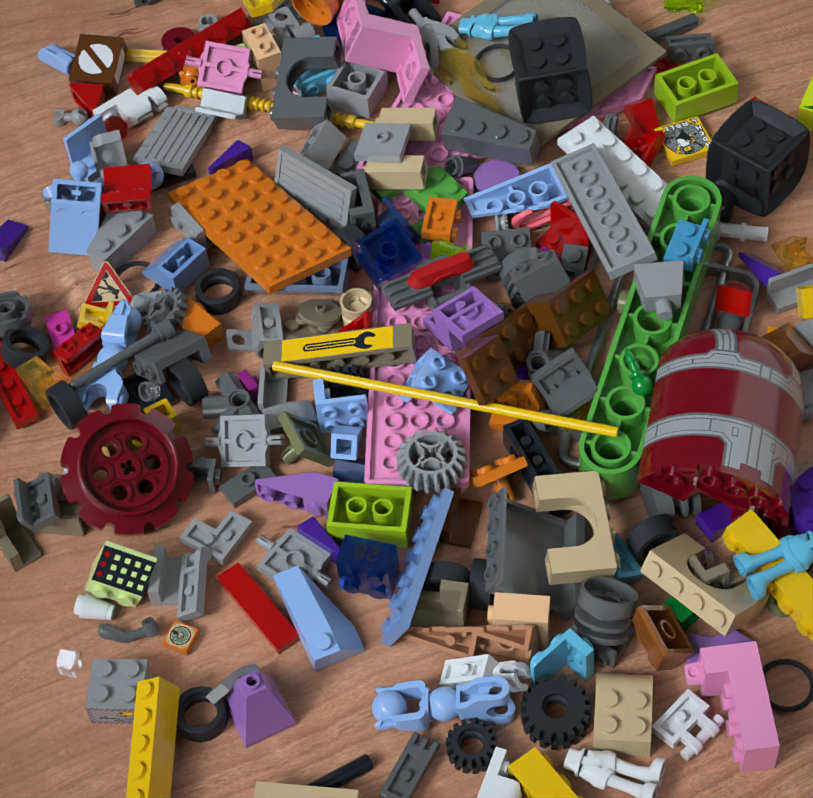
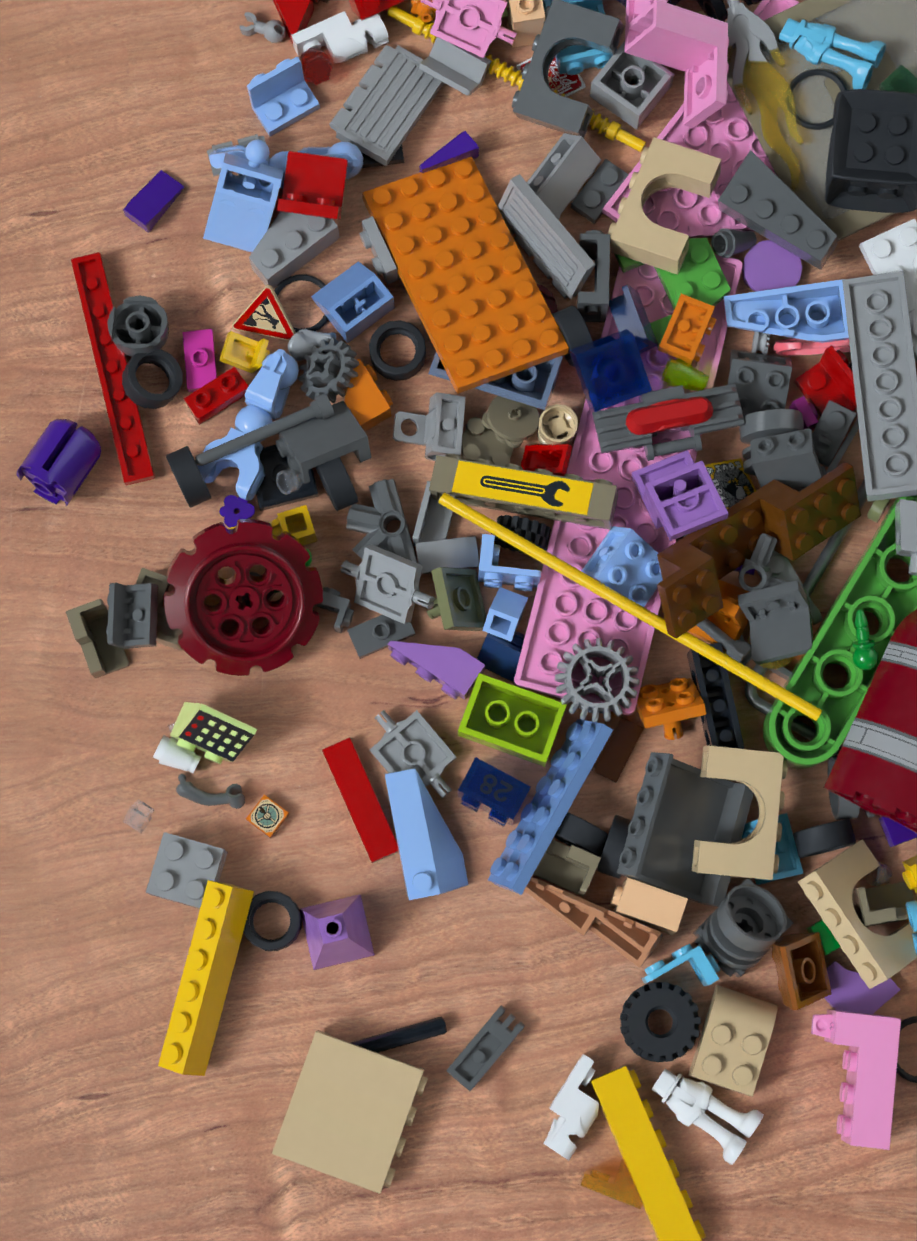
camera: 10 degrees right, 25 degrees up
(37, 378) = (161, 430): clear yellow slope -> none
(107, 150) = (301, 116): light grey piece -> none
(165, 578) = (271, 736): light grey panel -> none
(192, 584) = (293, 753): light grey plate -> none
(220, 541) = (333, 705): light grey plate -> none
(227, 684) = (317, 896): light grey slope -> none
(250, 384) = (410, 500): magenta plate -> none
(317, 534) = (445, 729): dark purple slope -> none
(382, 142) = (642, 200): light grey plate -> none
(442, 704) = (536, 983): light blue piece -> none
(465, 669) = (590, 960): white plate -> none
(467, 731) = (576, 1029): black tyre -> none
(681, 718) = (793, 1065): white plate -> none

